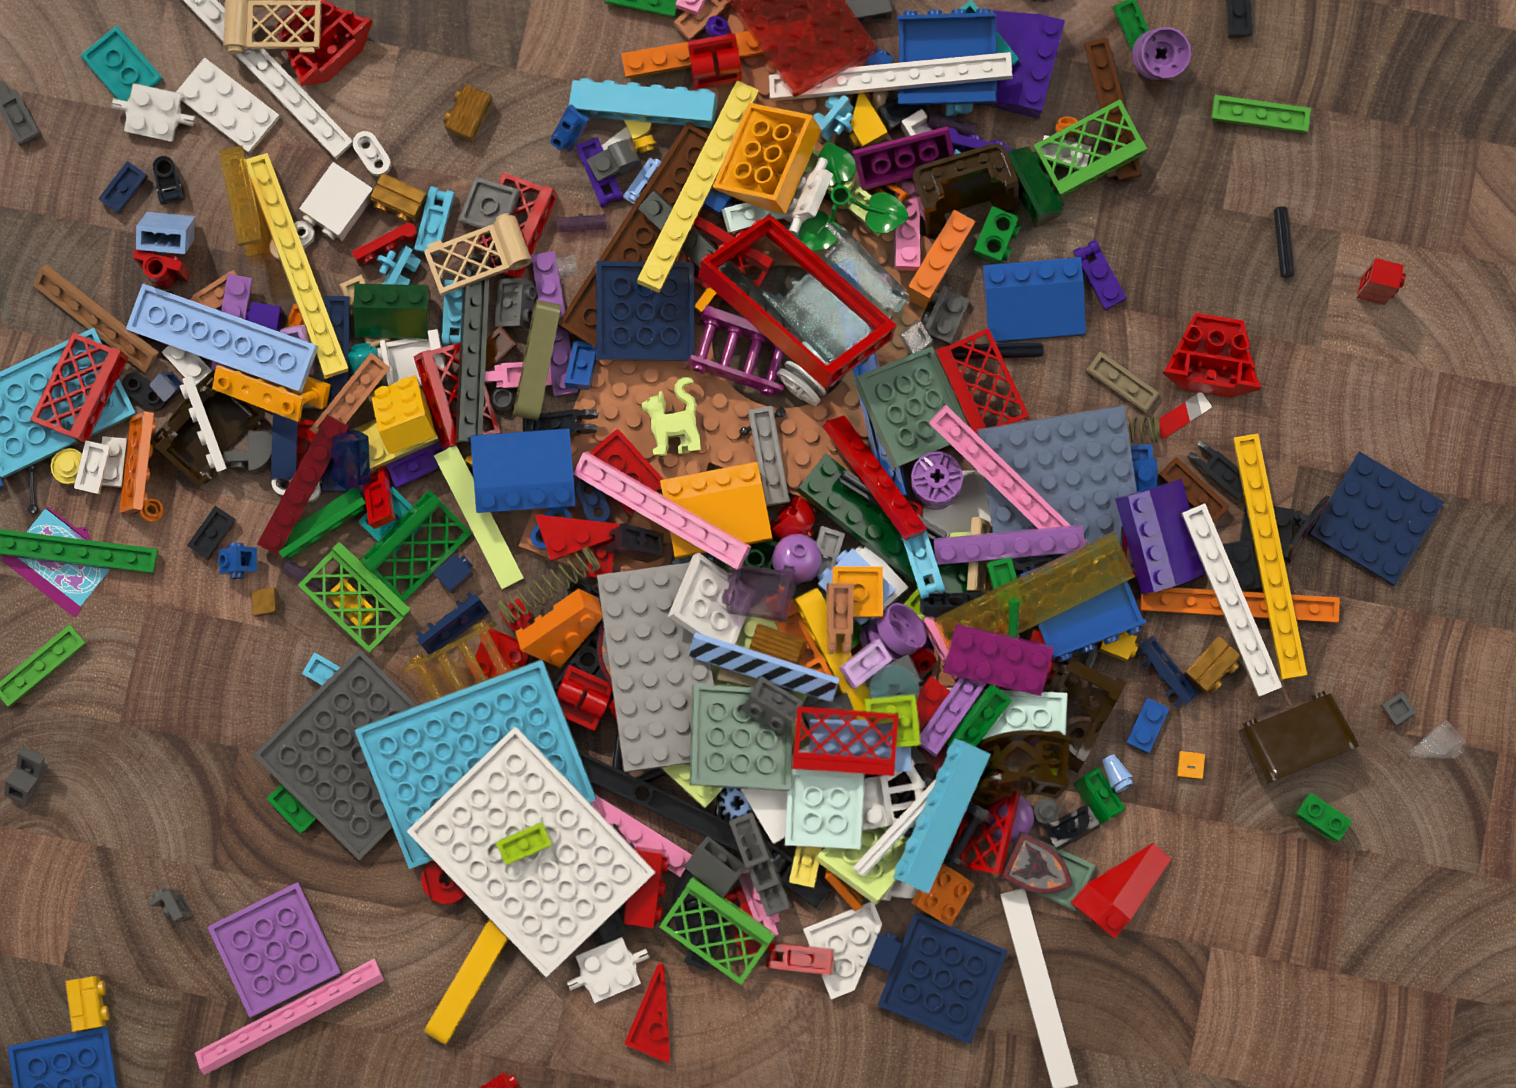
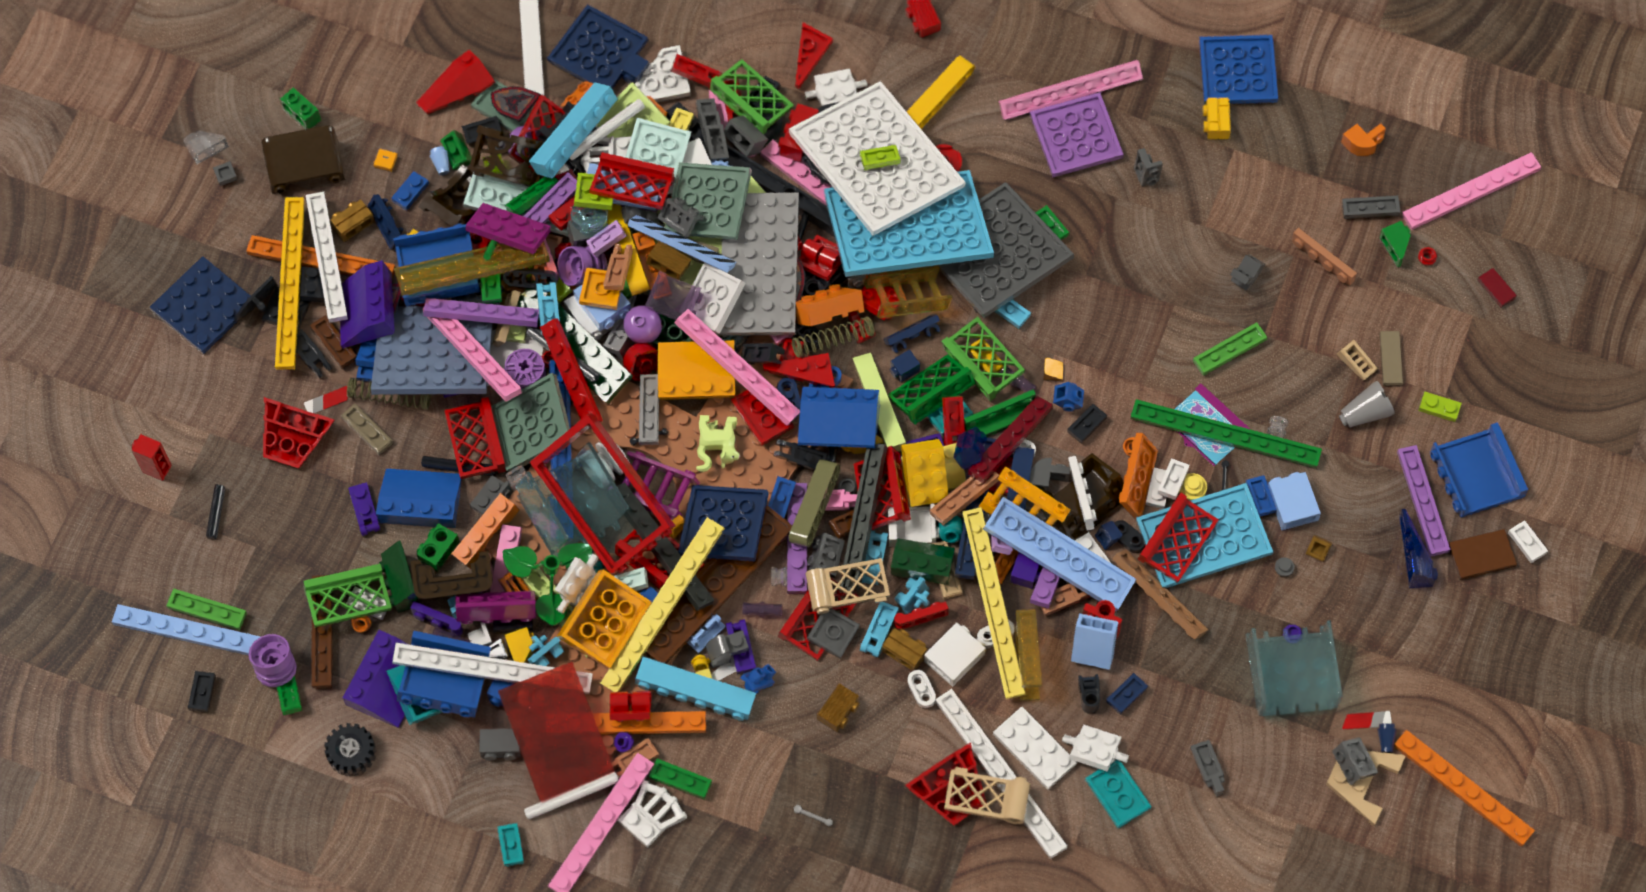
camera: 170 degrees left, 15 degrees down
(1275, 86) = (183, 629): none -> light blue plate

